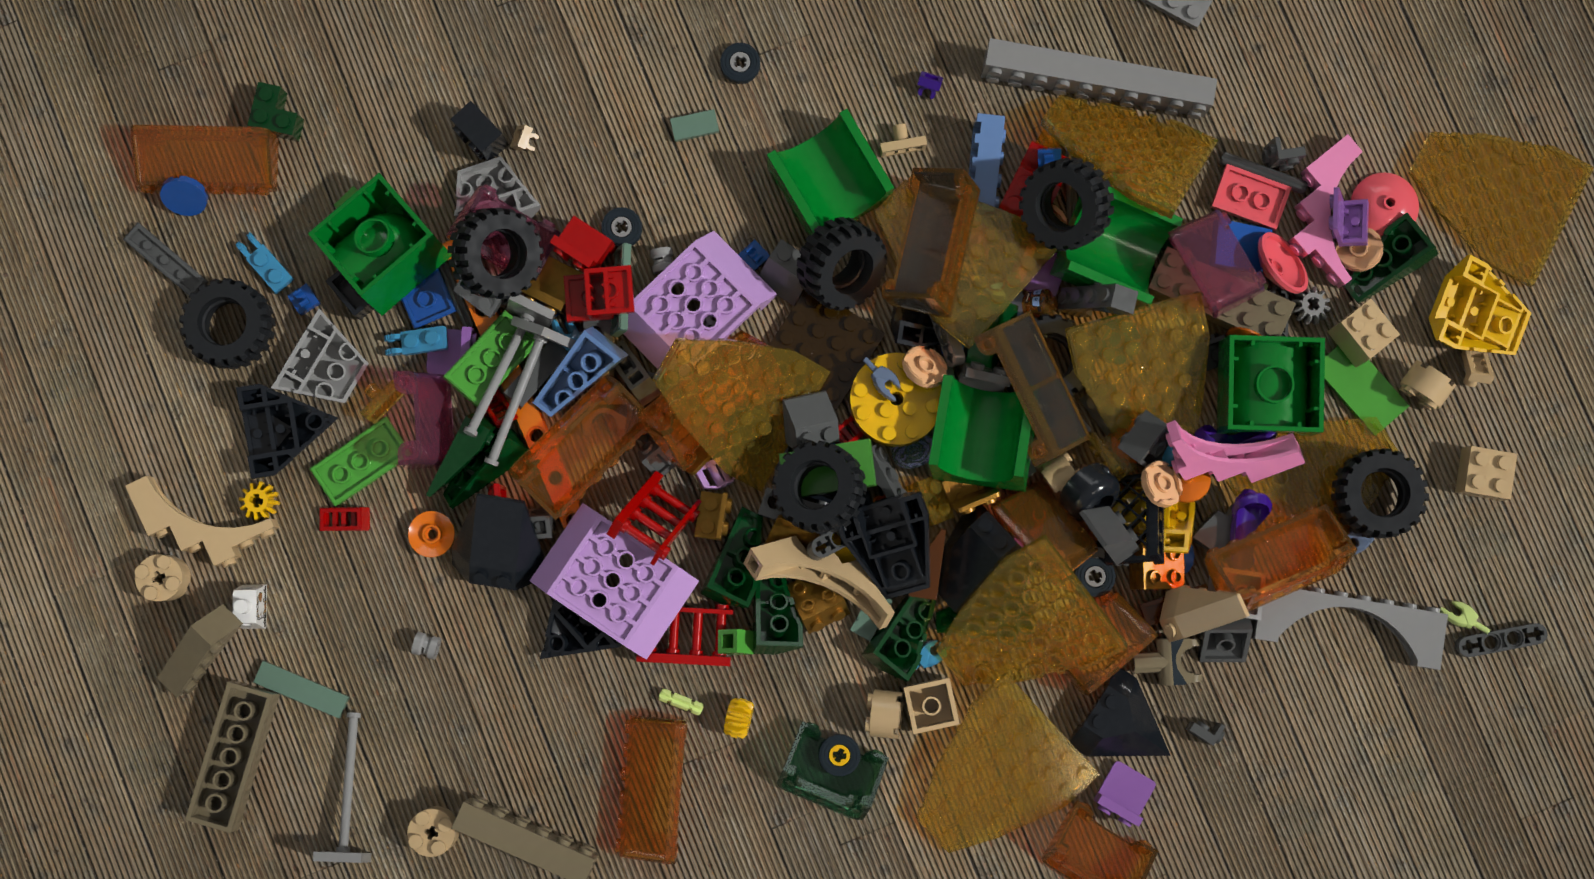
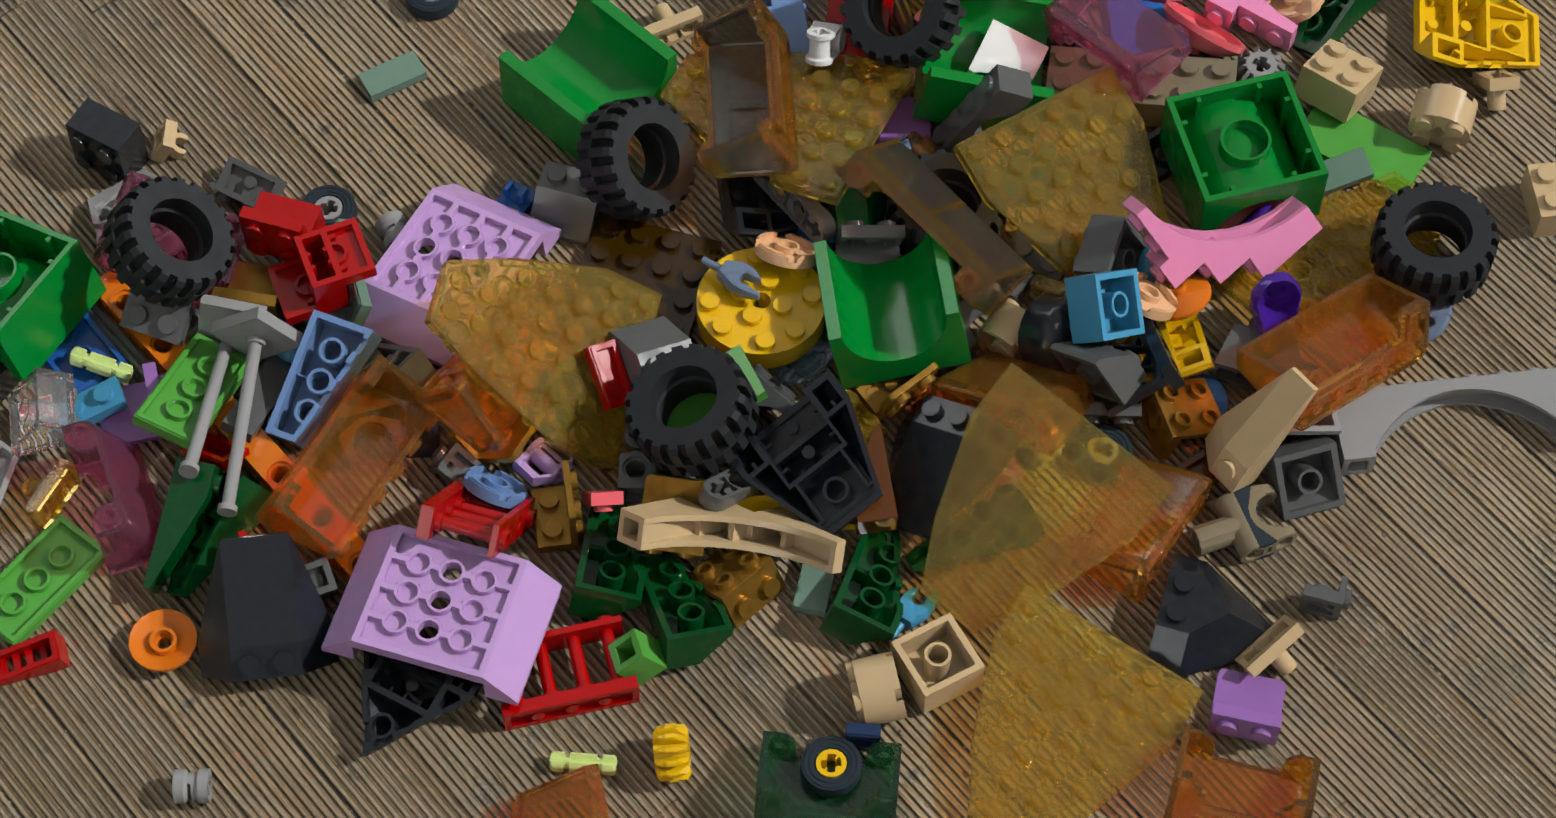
camera: 15 degrees left, 25 degrees down
(388, 343) = (40, 410): none -> clear slope
(436, 311) = (101, 364): none -> yellowish green axle
(569, 193) = (245, 183): none -> dark grey bracket
(676, 488) = (494, 488): none -> medium blue tile
(745, 518) = (602, 499): none -> coral plate
(775, 431) = (608, 373): none -> red tile
(866, 740) = (863, 734): none -> dark blue tile
(1002, 206) = (825, 43): none -> white piece
(1127, 495) = (1104, 306): none -> dark azure brick
(1131, 250) = (1008, 48): none -> white slope
(1155, 760) = (1271, 649): none -> tan tile
(1342, 405) = (1347, 170): none -> sand green tile

